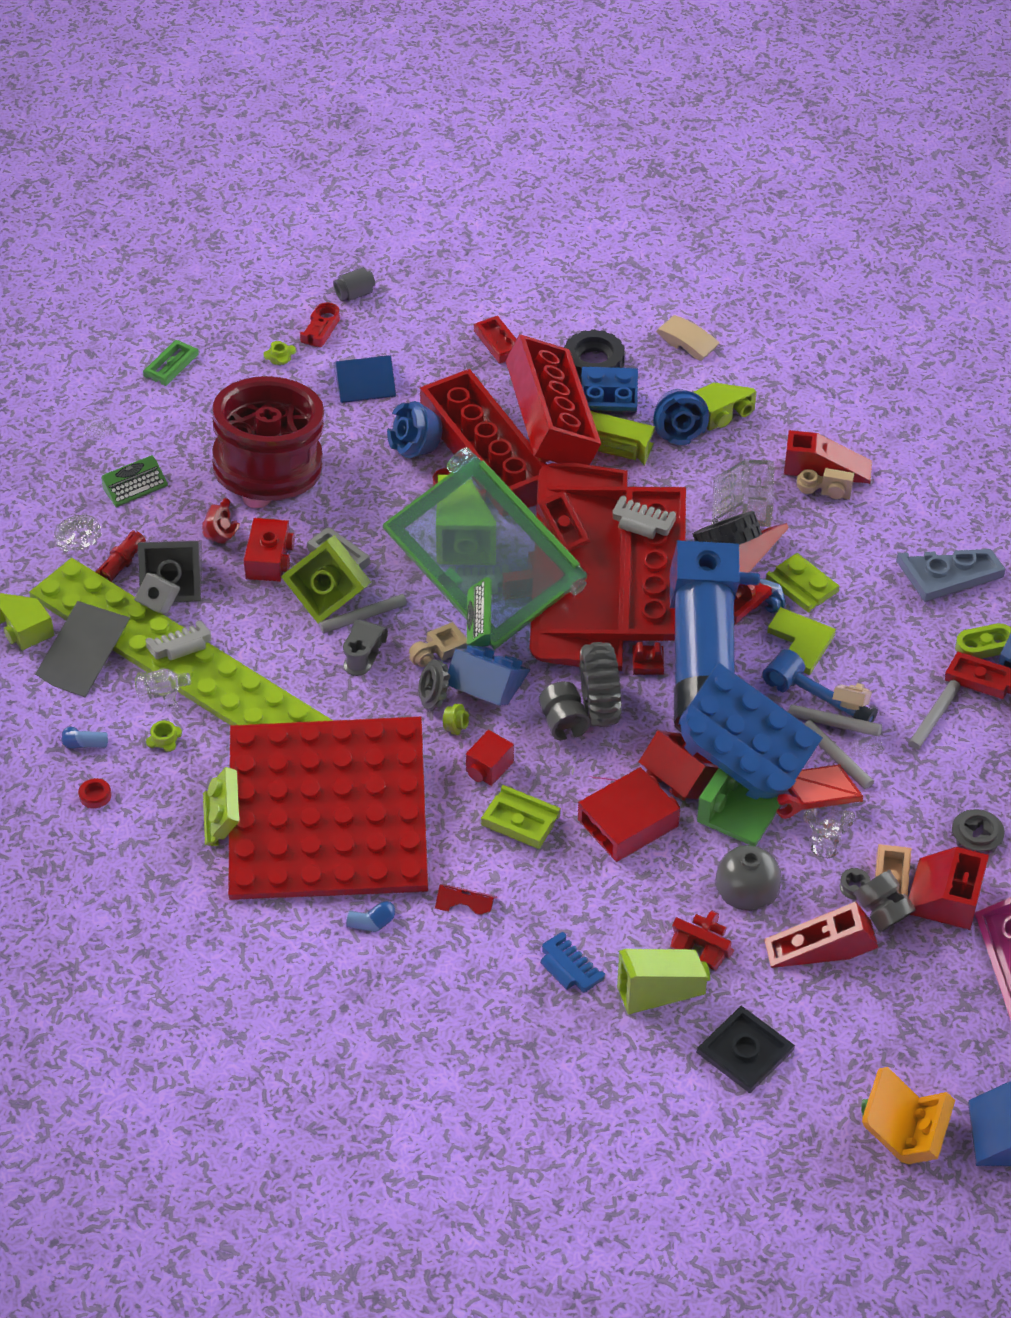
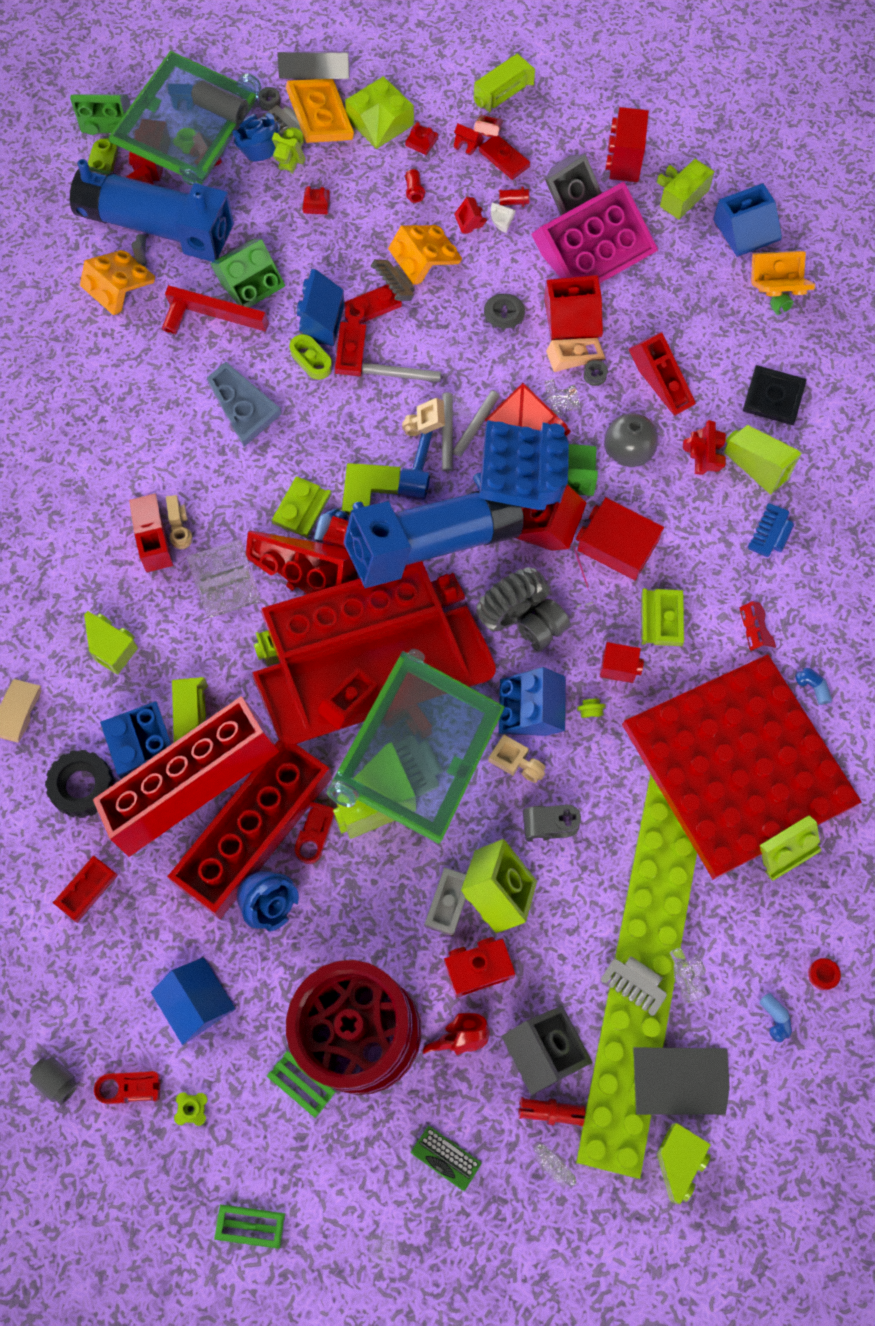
camera: 115 degrees left, 20 degrees up
(160, 729) = (739, 939): lime plate -> none
(167, 593) = (591, 1047): light grey piece -> none
(362, 613) = (493, 836): light grey bar -> none
(433, 684) = (577, 733): dark grey gear -> none
(479, 613) = (489, 720): slope -> none
(638, 522) = (322, 627): light grey piece -> none
(680, 416) = (143, 666): blue cone -> none
(731, 530) = (272, 579): black tyre -> none
(884, 901) = (613, 340): dark grey wheel -> none

